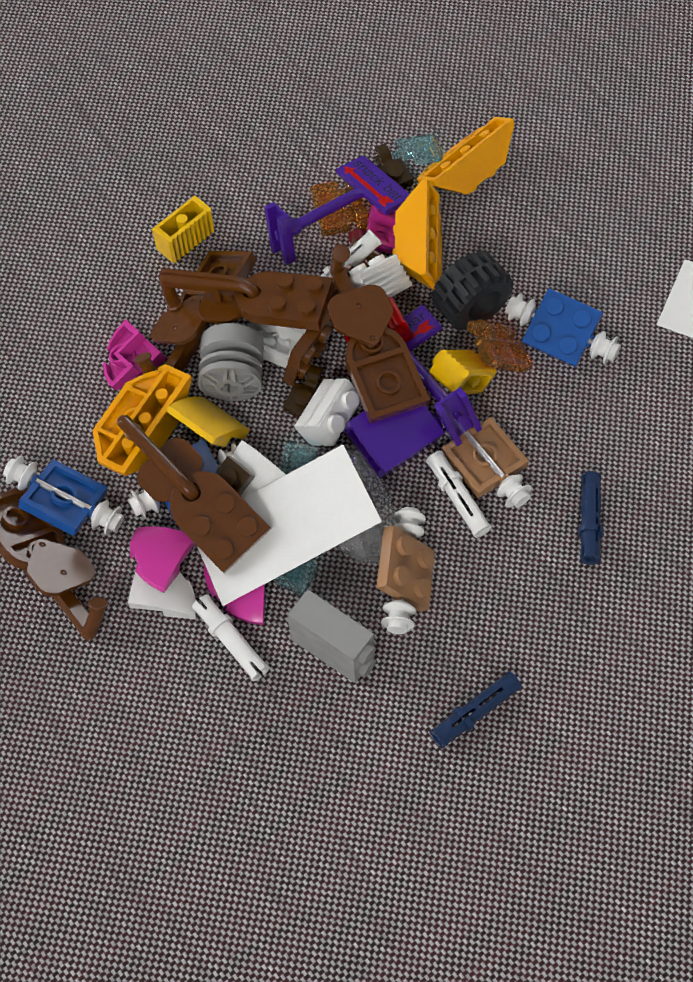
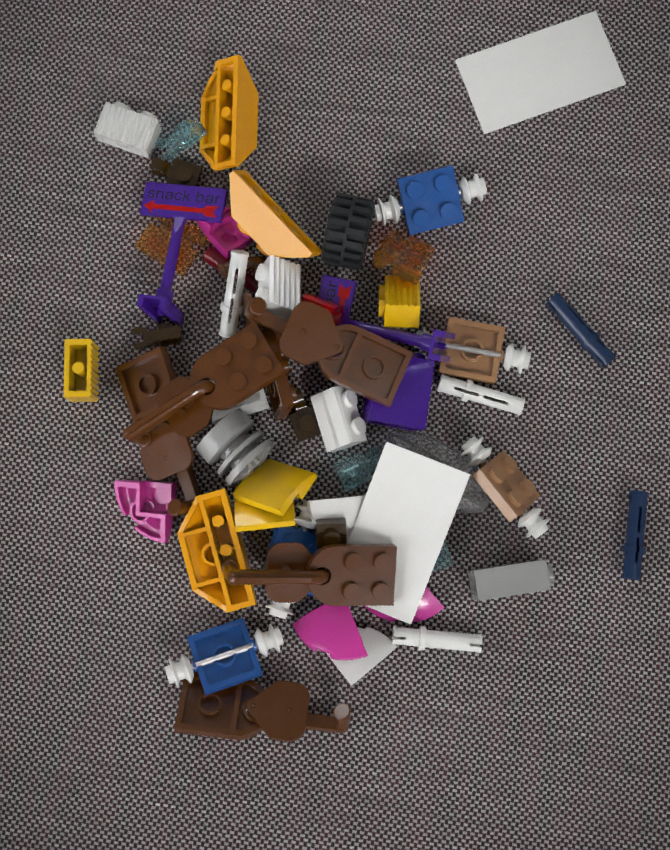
camera: 45 degrees left, 20 degrees up
(225, 408) = (274, 486): none -> yellow slope
(268, 256) = (165, 335): none -> dark brown plate
(386, 115) = (128, 129): none -> white brick

